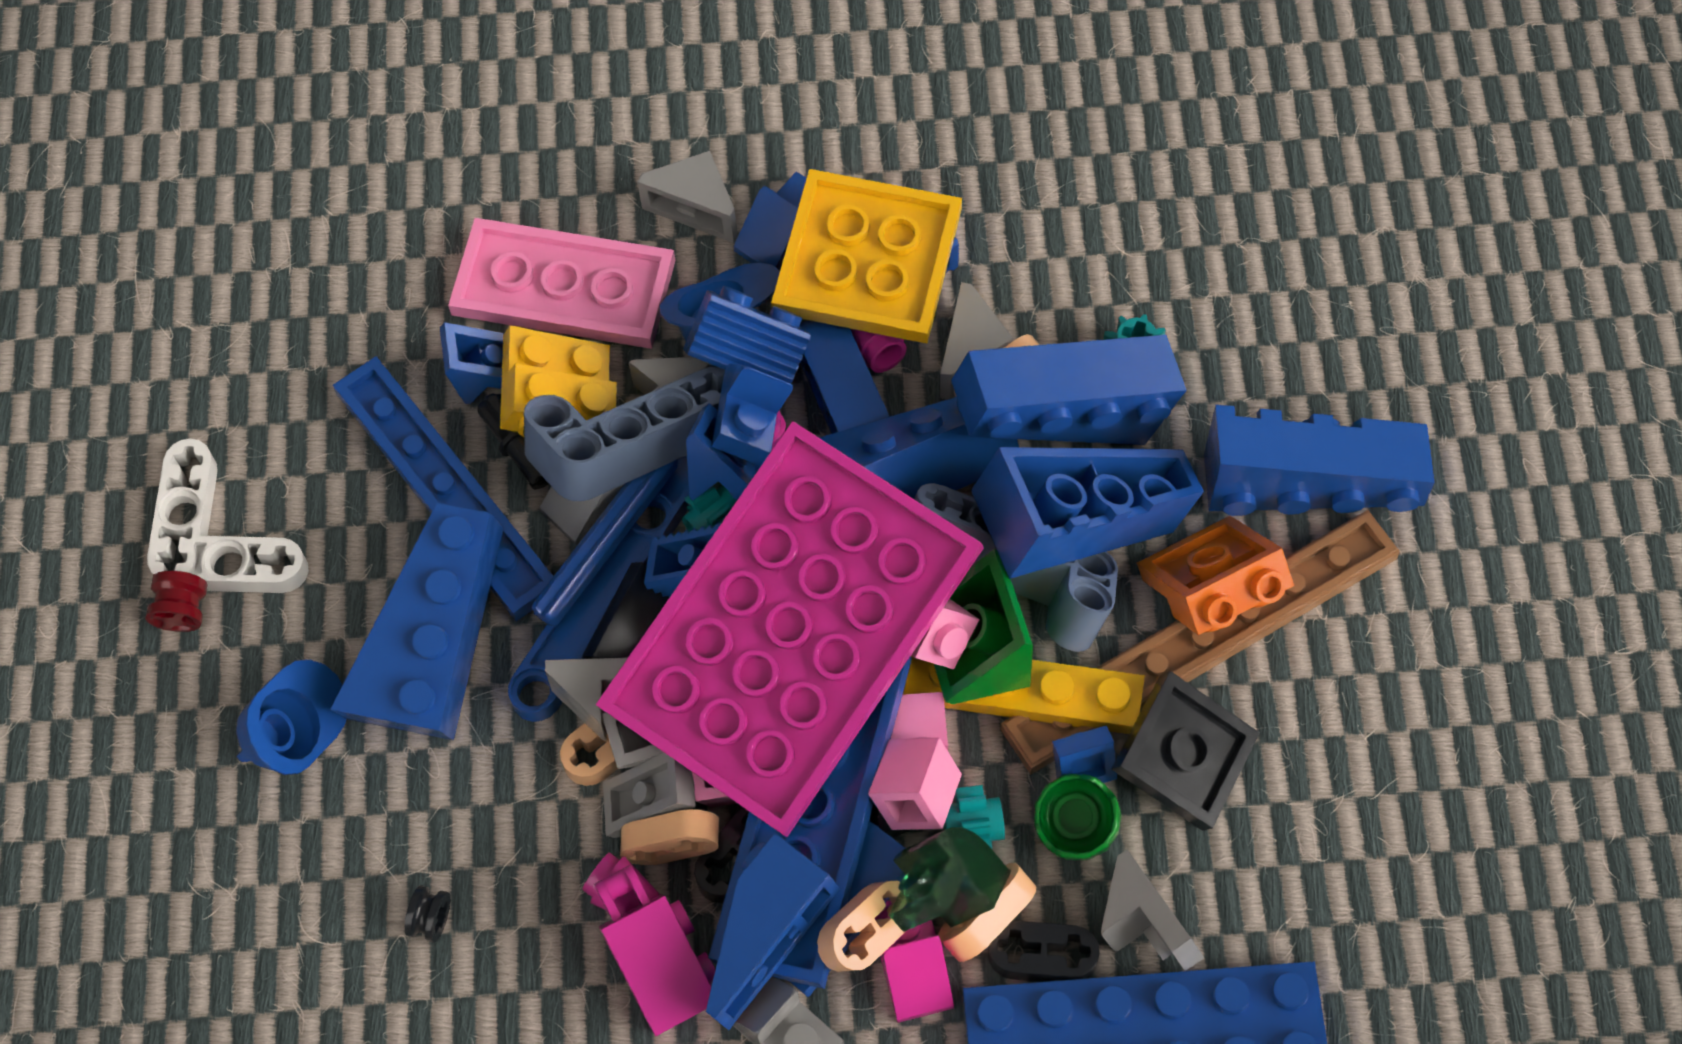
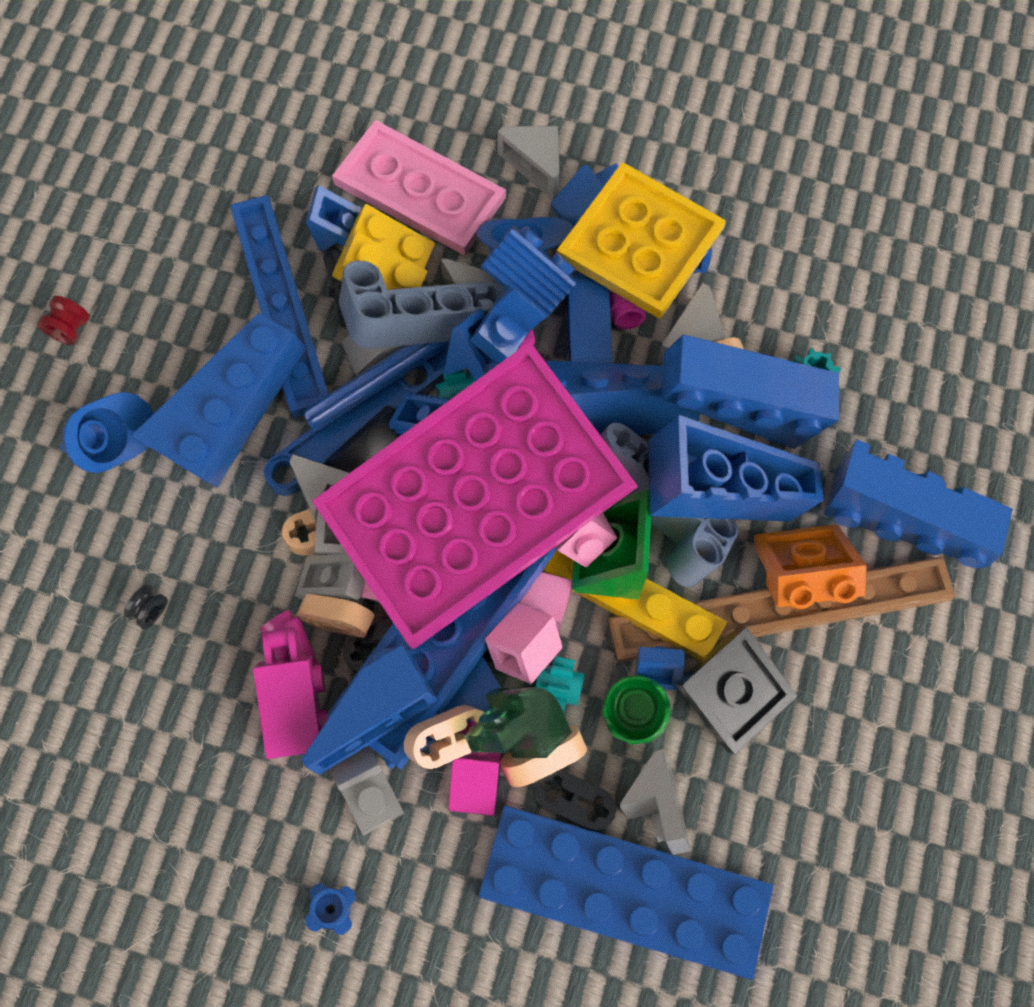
camera: 15 degrees right, 5 degrees up
(203, 550) = (94, 282): white beam -> none

